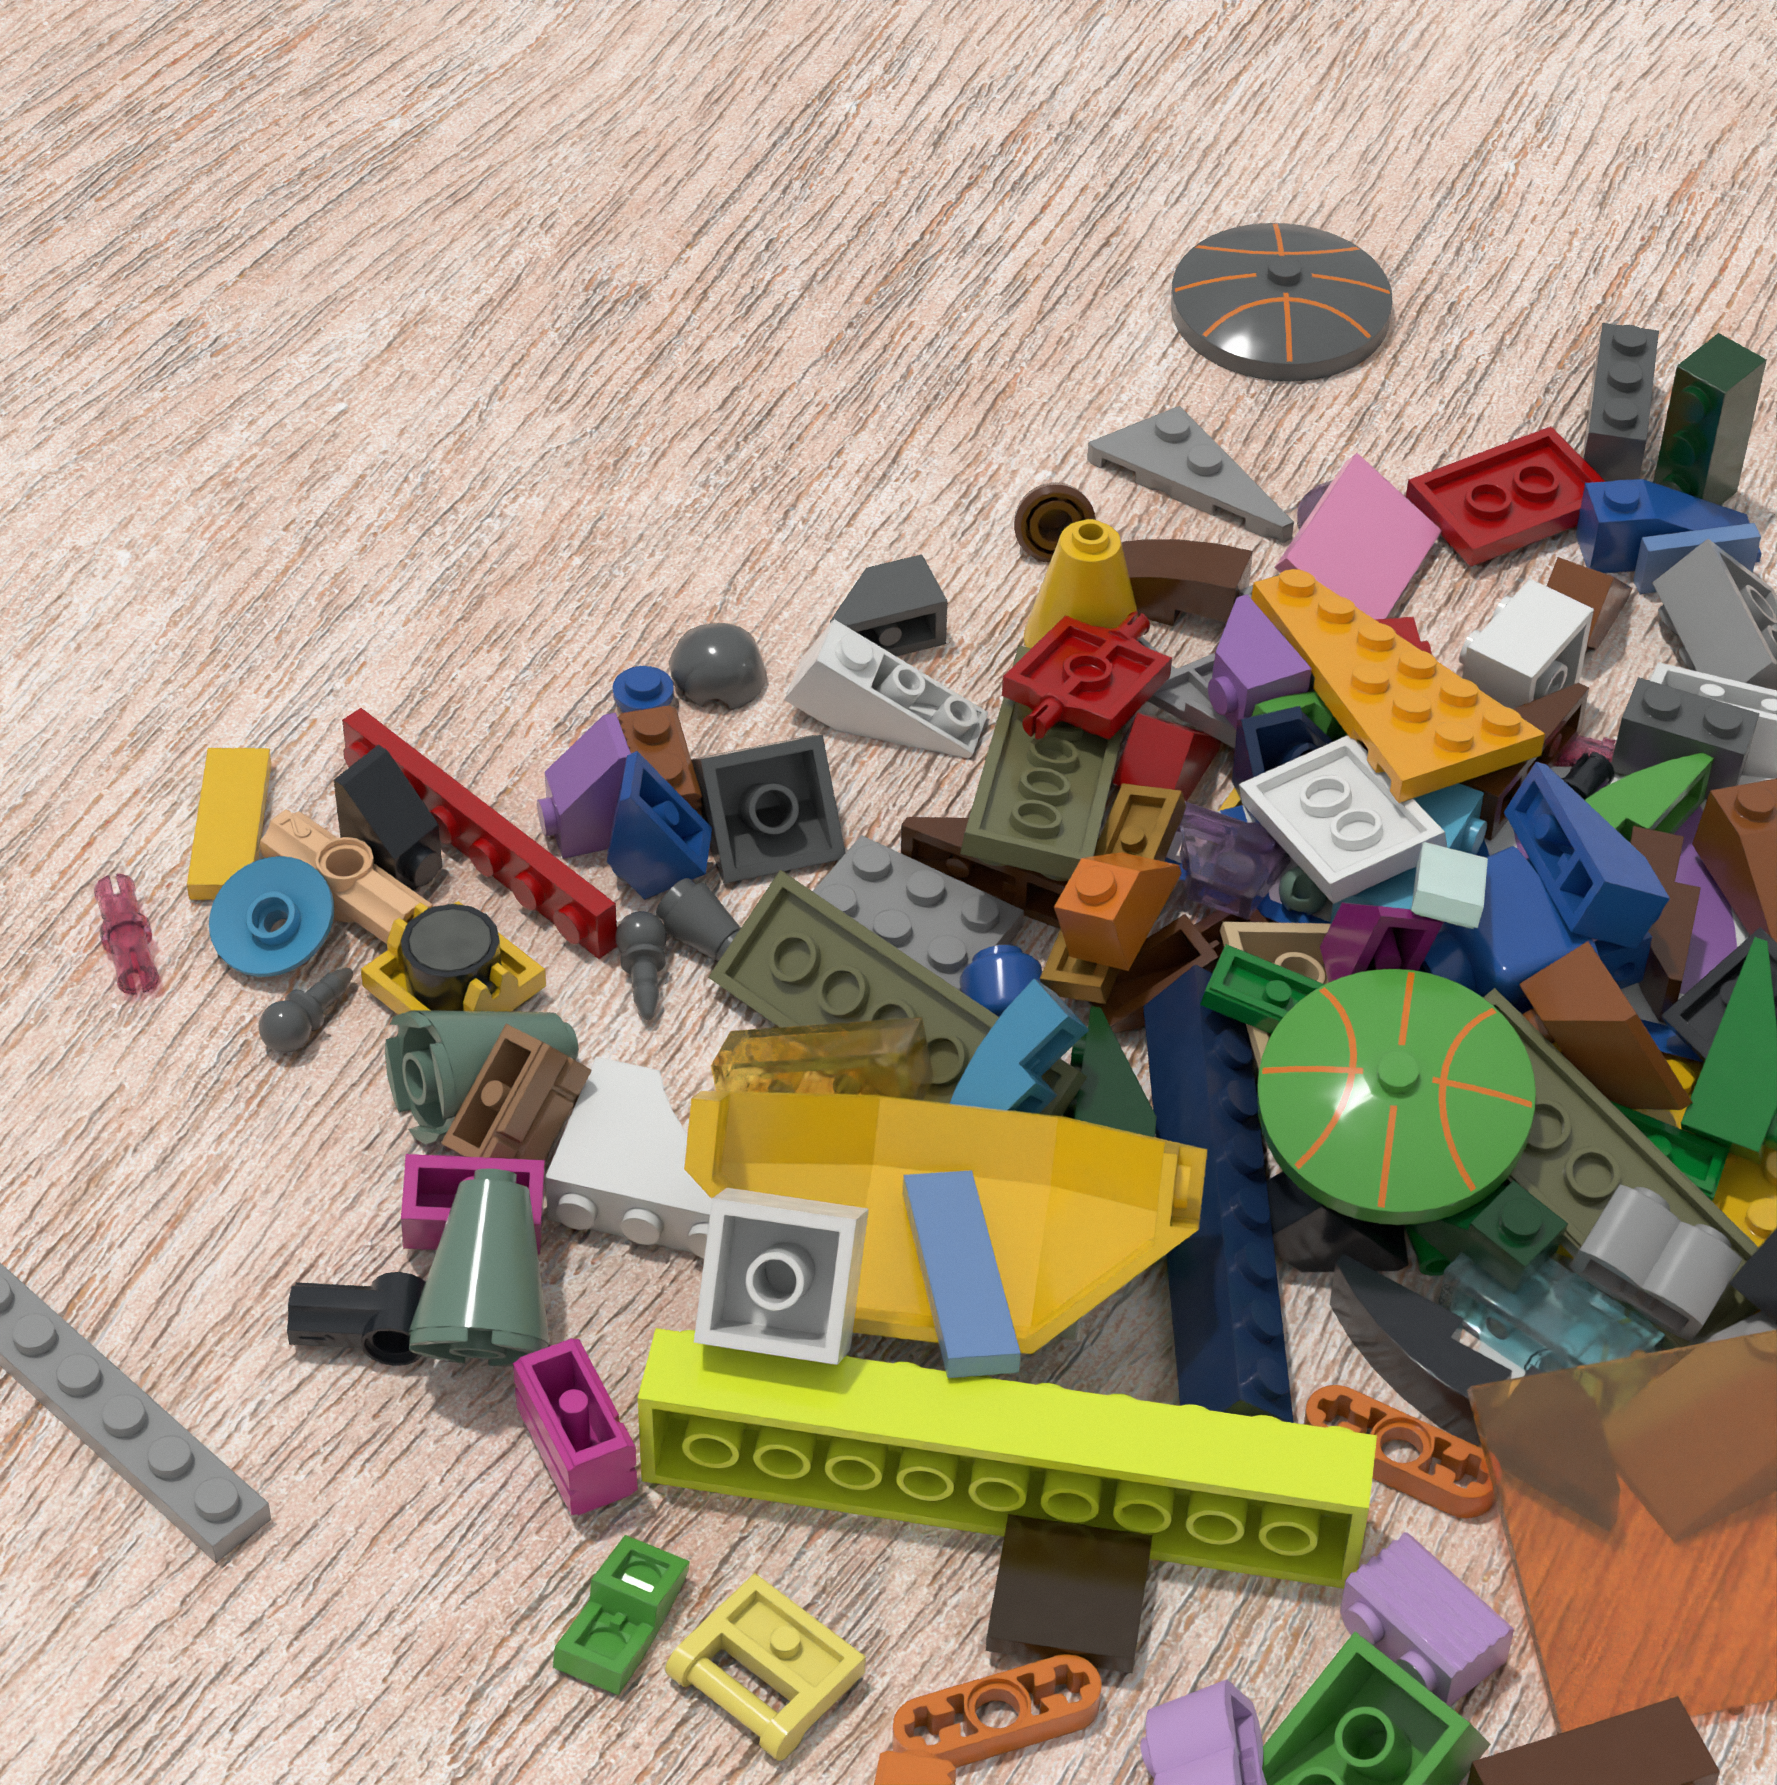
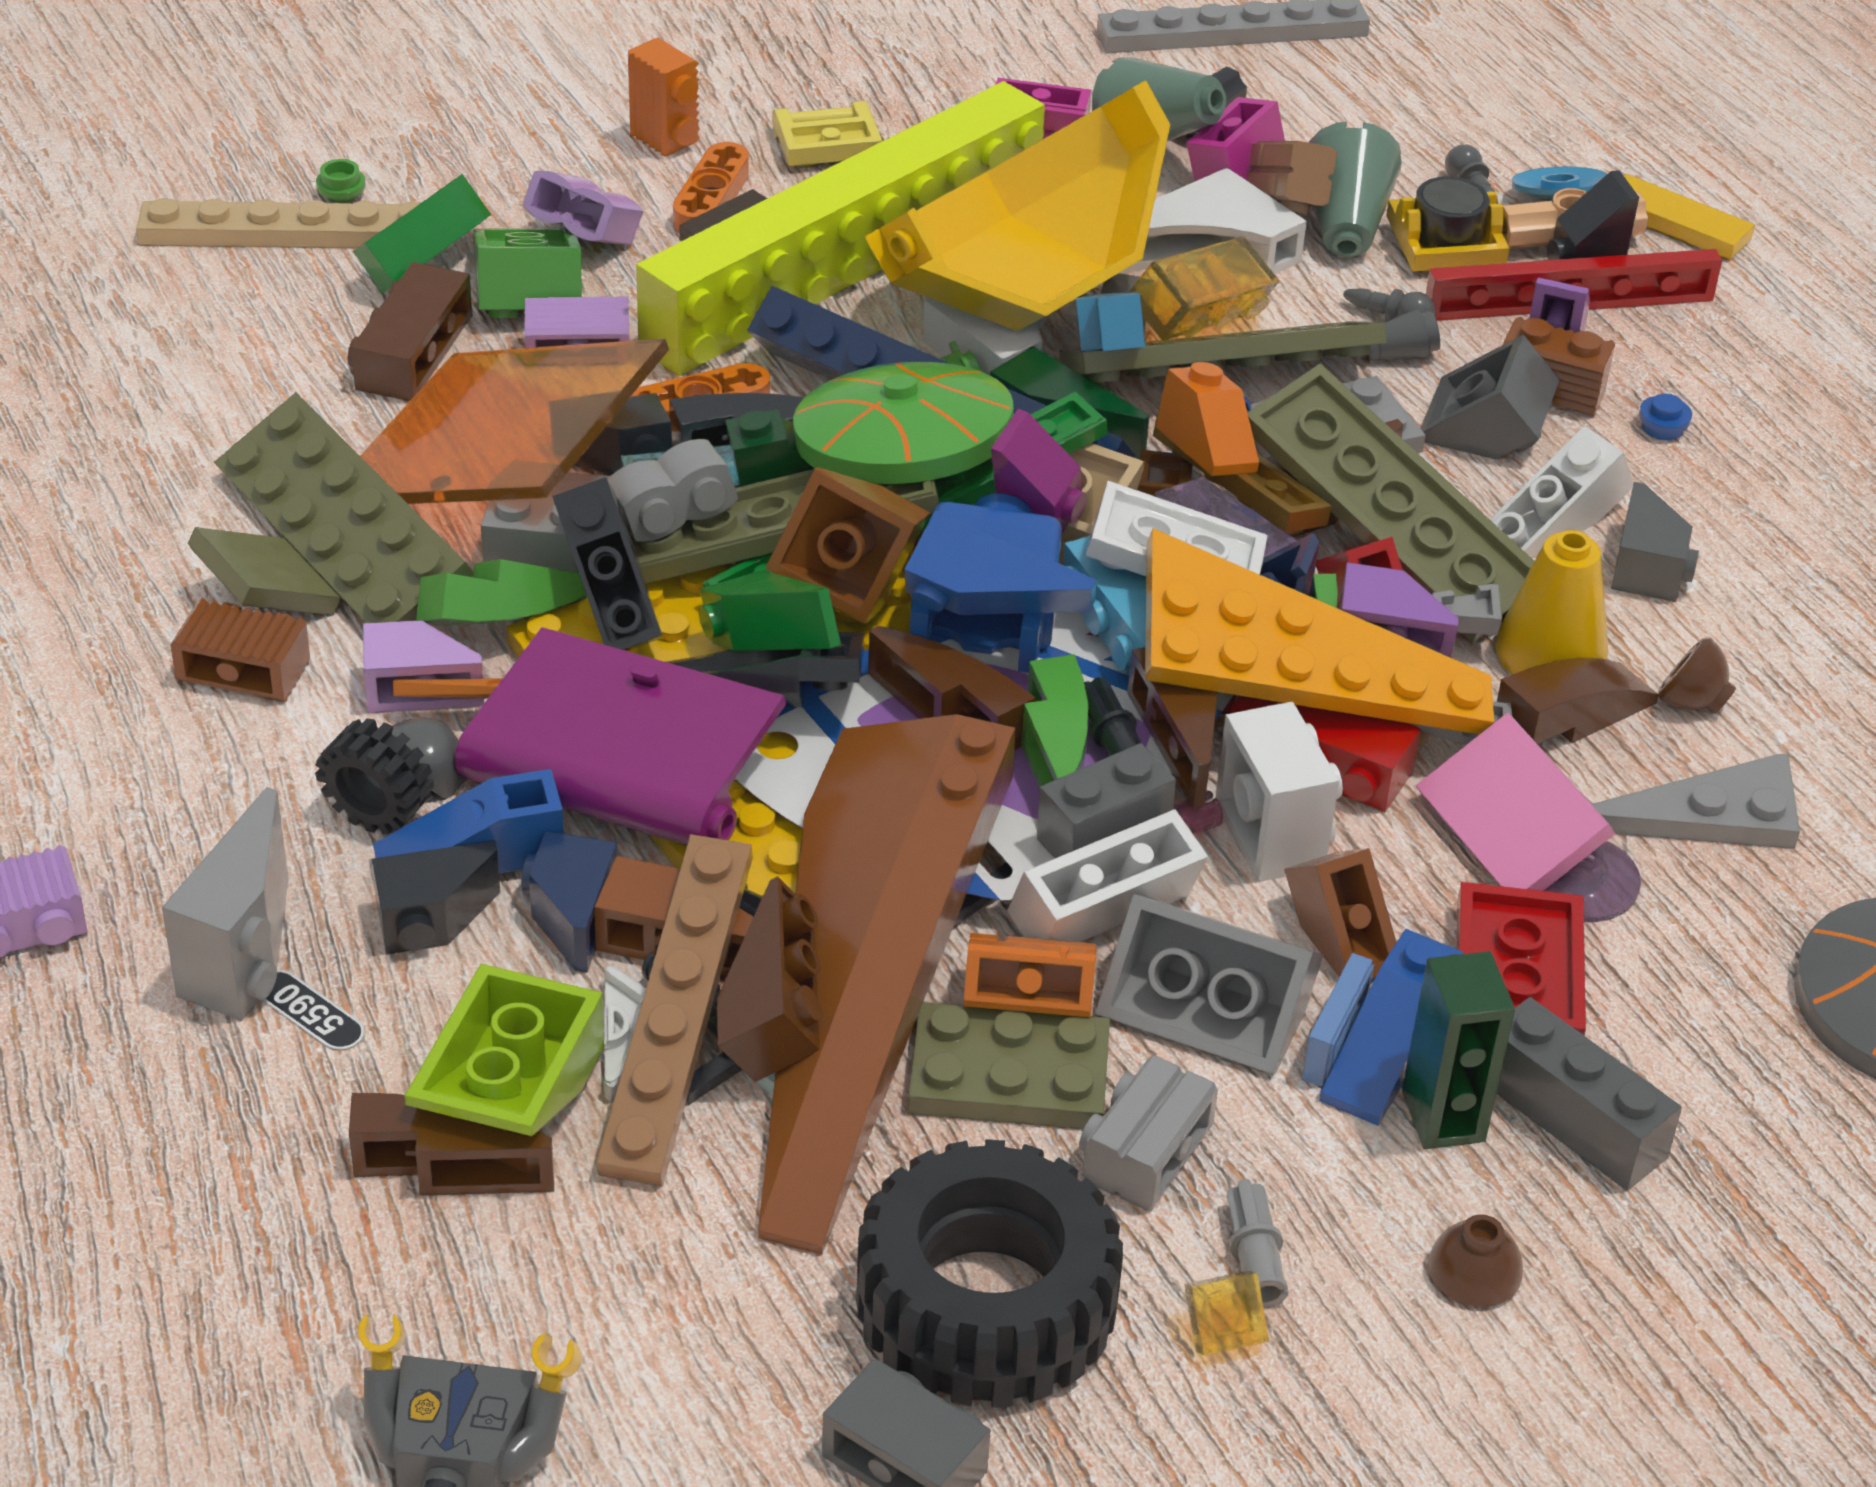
camera: 125 degrees right, 5 degrees down
(126, 934) = (1603, 144): clear pink pin -> none
(622, 1615) = (906, 102): bright green slope -> none
(655, 832) = (1488, 305): blue slope -> none
(718, 664) = (1665, 456): dark grey hair -> none
(781, 1275) = (1011, 112): white brick -> none
(960, 1275) = (971, 222): medium blue tile -> none
(1087, 676) = (1456, 538): red plate -> none
(1449, 885) = (1023, 473): light aqua tile -> none

